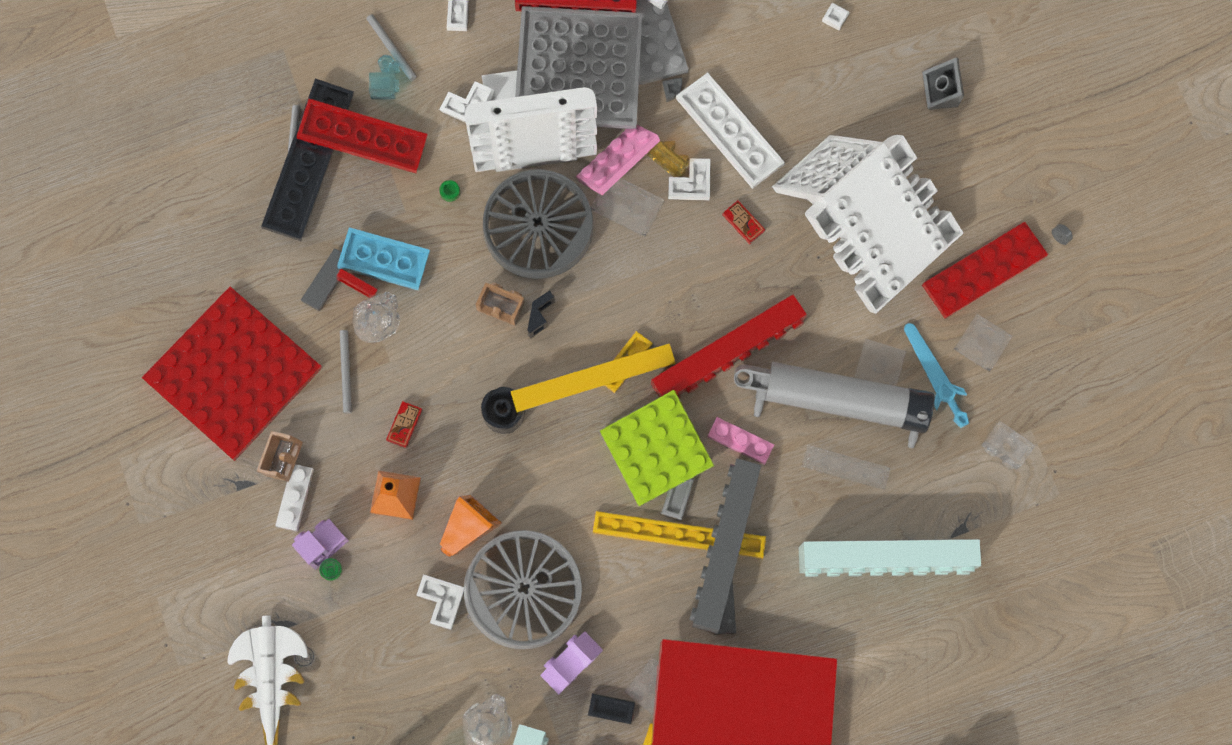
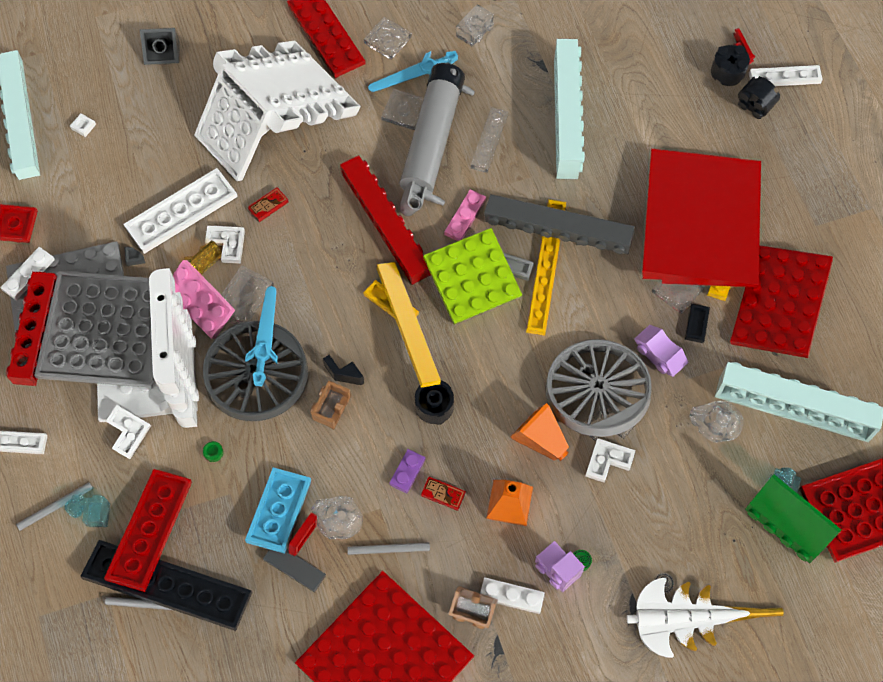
camera: 85 degrees left, 10 degrees down
(429, 387) = (407, 471): none -> medium lavender plate
(564, 227) = (263, 345): none -> medium azure sword

